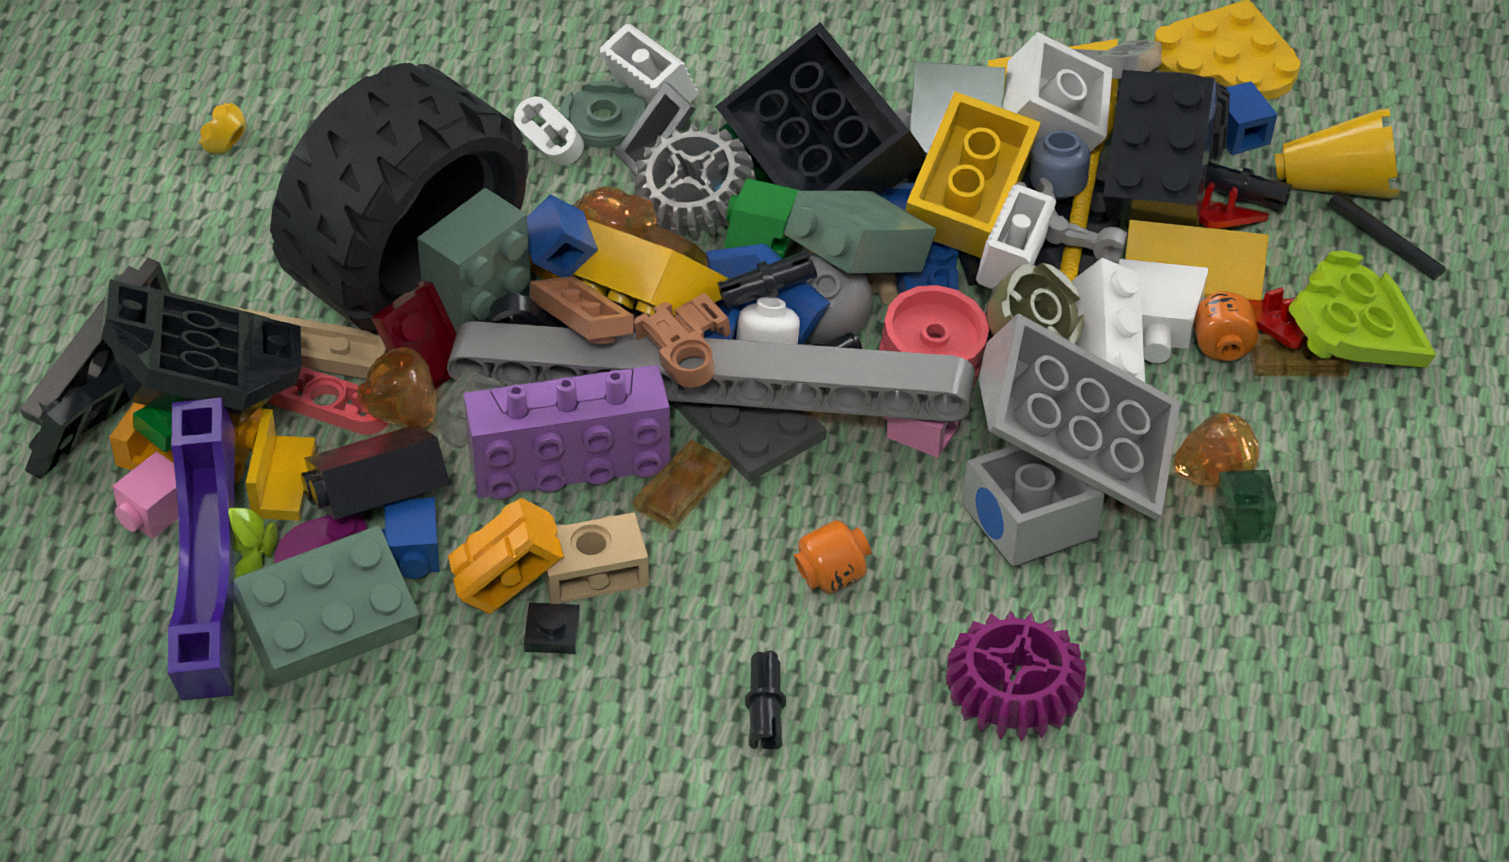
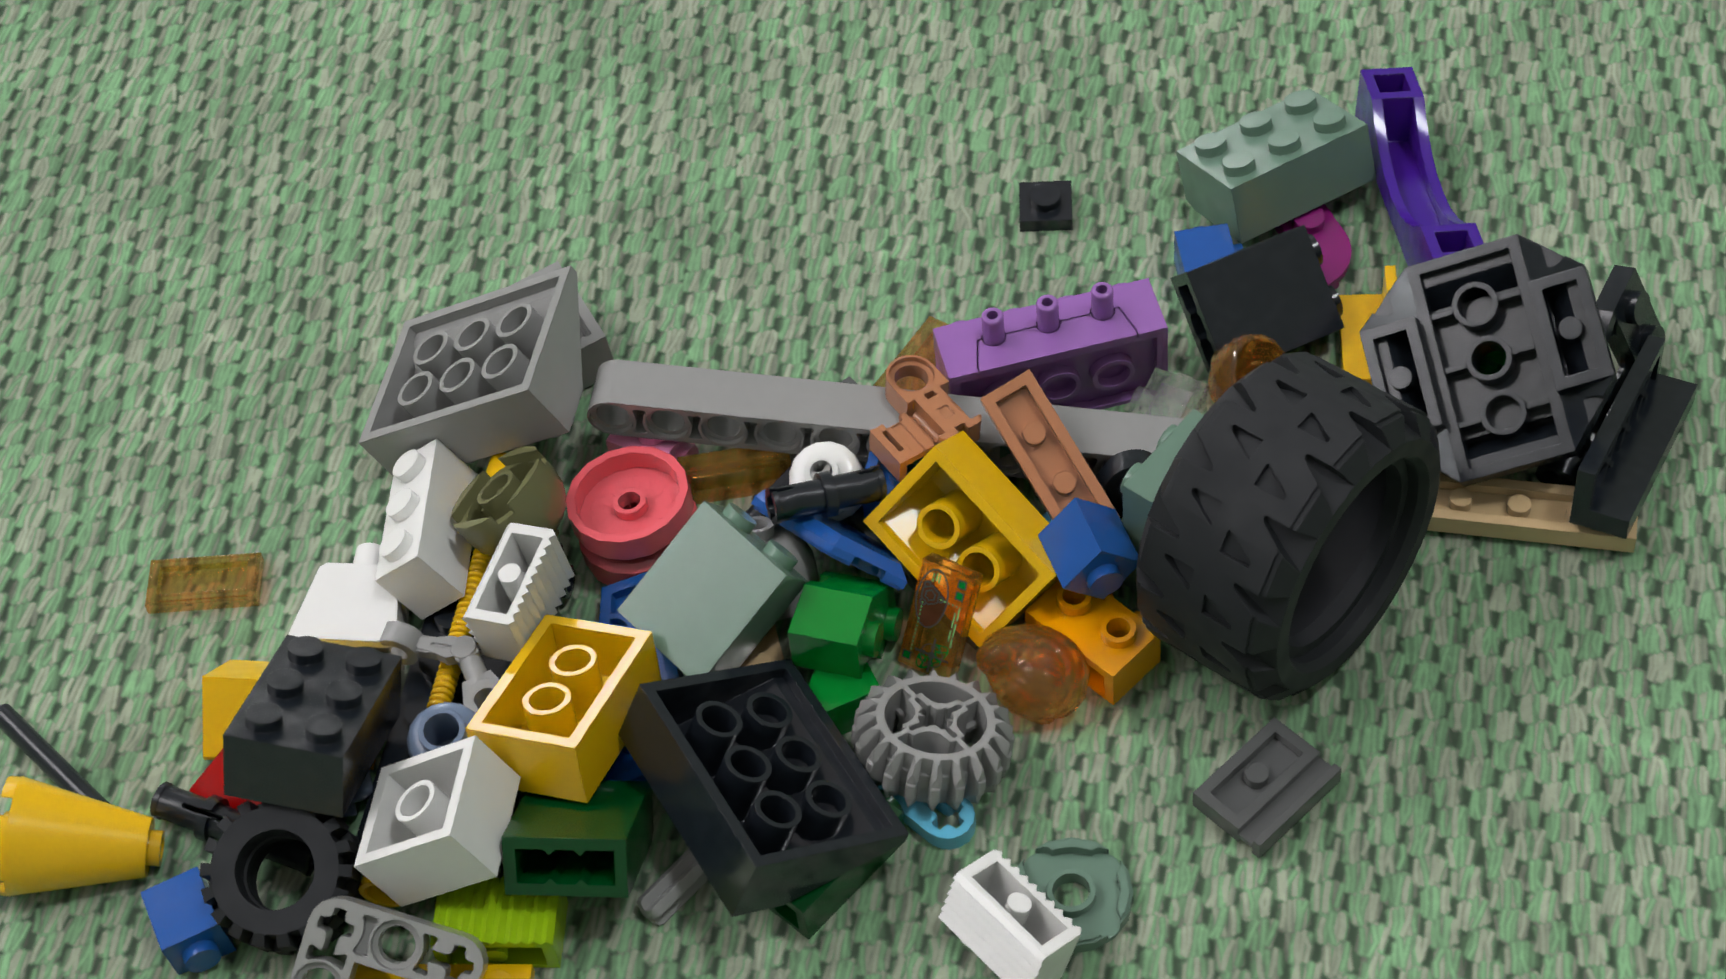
camera: 175 degrees left, 5 degrees up
(223, 130) = (1593, 804): yellow plate -> none
(251, 539) = (1377, 243): lime plant -> none
(505, 556) = (1098, 220): light orange brick -> none
(542, 136) = (1142, 842): white beam -> none
(598, 559) = (1010, 259): tan brick -> none
(660, 117) = (989, 824): dark grey slope -> none
(765, 701) = (825, 145): black axle -> none
(832, 556) = (757, 282): orange head -> none
(1043, 690) = (590, 181): magenta gear -> none
(1215, 446) = (329, 409): clear orange hair -> none
(1223, 324) = (279, 582): orange head -> none
(1245, 507) = (312, 361): clear green brick -> none
(1275, 319) = (208, 629): red piece -> none
(1359, 315) = (116, 601): lime plate -> none

